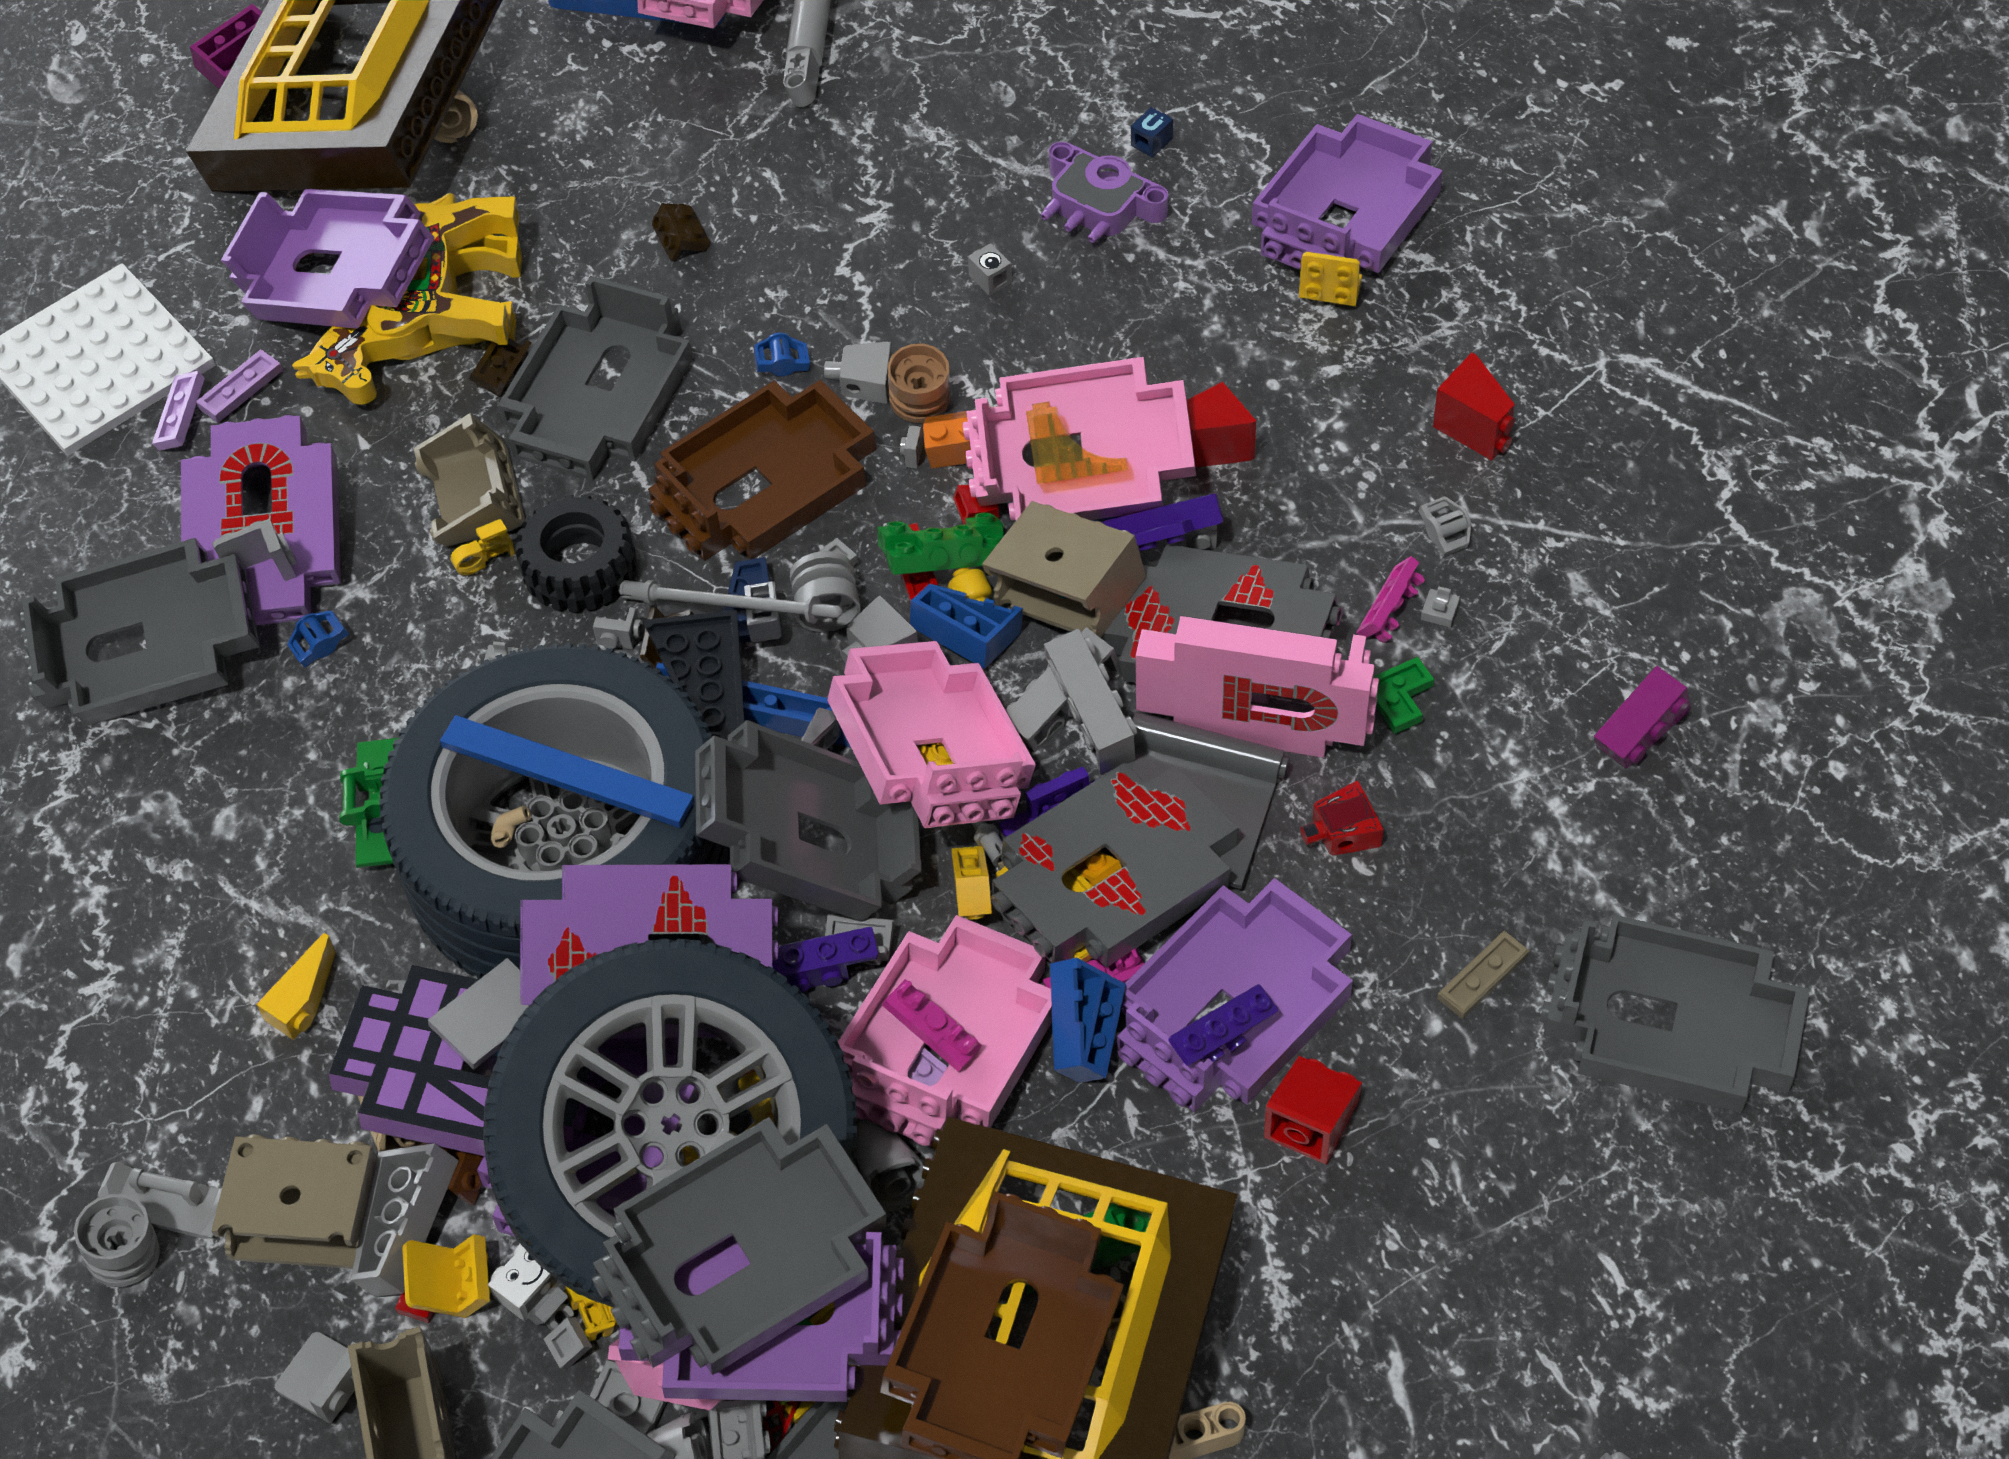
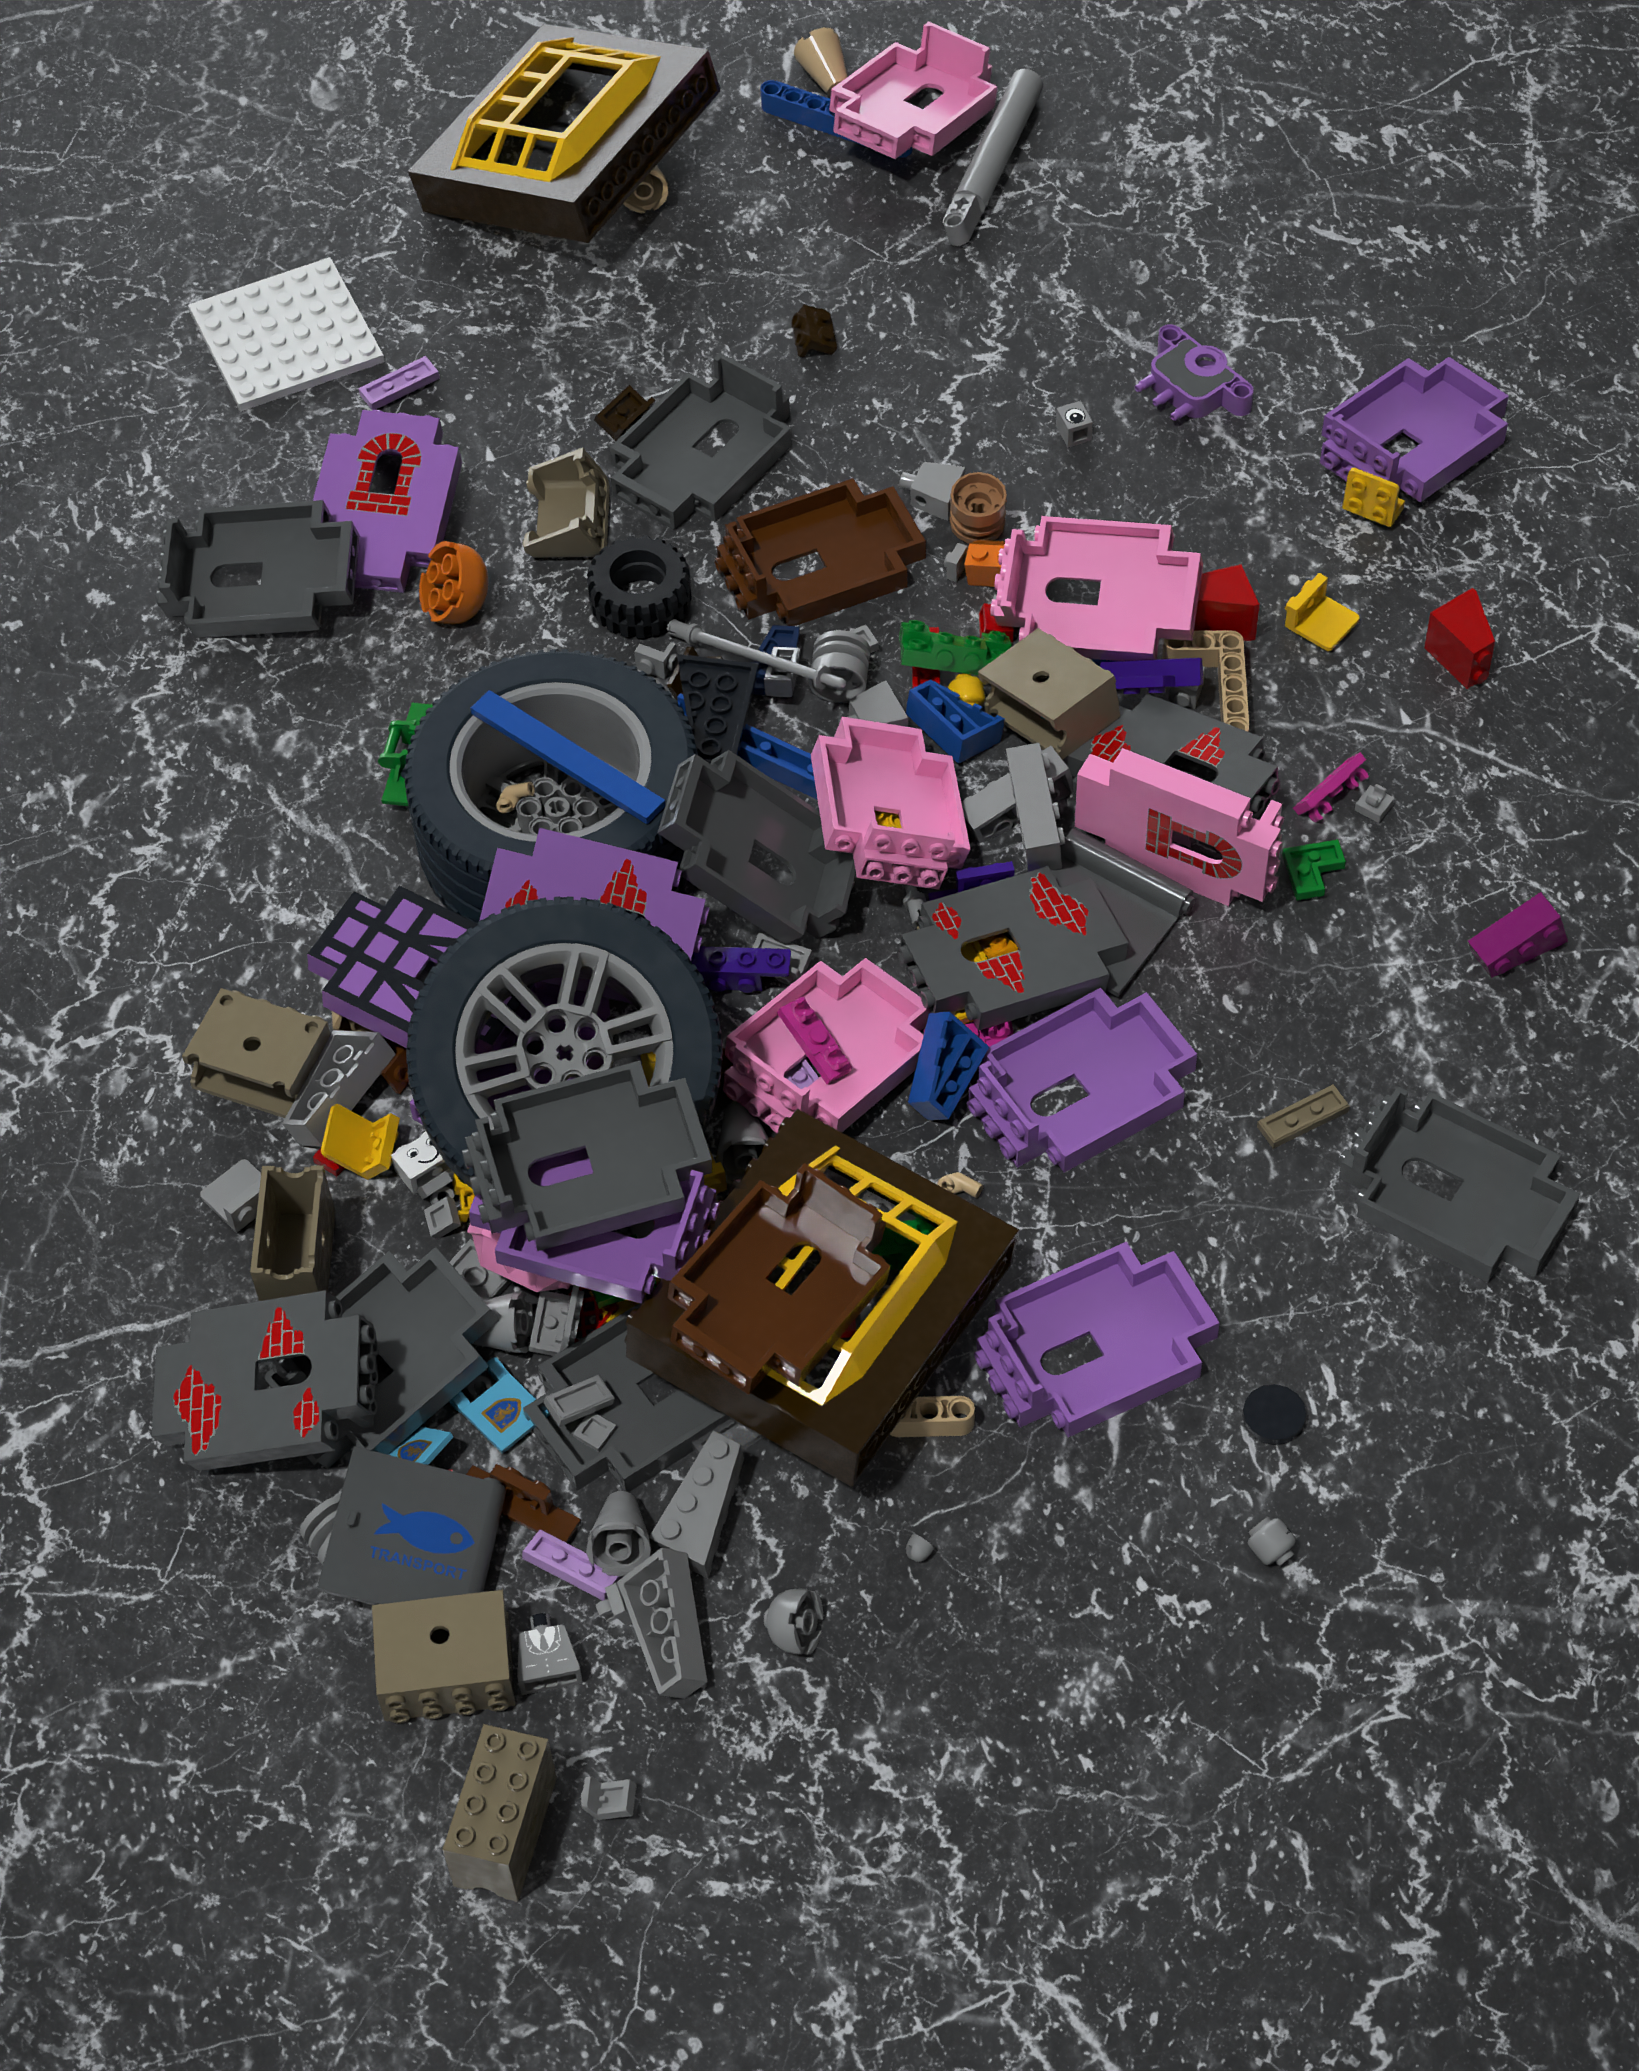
camera: 15 degrees right, 0 degrees up
(117, 1240) = (107, 1048): light grey wheel -> none
(169, 1201) = (147, 1027): light grey piece -> none
(178, 411) = (342, 393): lavender plate -> none
(220, 48) = (461, 88): magenta wedge -> none
(258, 544) = (372, 518): light grey bracket -> none
(297, 995) = (306, 892): yellow slope -> none
(321, 645) = (405, 613): blue piece -> none
(372, 233) = (544, 277): medium lavender panel -> none
(377, 589) = (463, 581): none -> orange cylinder
(431, 310) = (571, 346): yellow animal -> none
(482, 1015) = (432, 937): light grey tile -> none
(493, 542) = (572, 562): yellow piece -> none
(782, 361) = (868, 466): blue piece -> none
(822, 729) = (799, 780): flat silver slope -> none
(971, 882) = (886, 934): yellow slope -> none
(1058, 454) = (1073, 592): clear yellow arch -> none
(1138, 1147) = (959, 1182): none -> tan arm
(1151, 132) = (1259, 334): dark blue brick -> none
(1223, 1027) = (1058, 1100): dark purple bracket -> none
(1232, 479) = (1226, 652): none -> tan beam
(1311, 1109) = (1114, 1186): red slope -> none
(1315, 419) = (1318, 616): none -> yellow bracket
(1344, 822) = (1224, 962): torso -> none
(1387, 1254) = (1139, 1318): none -> medium lavender panel
(1446, 525) = (1404, 734): light grey piece -> none
(1568, 1327) = (1274, 1414): none -> black tile

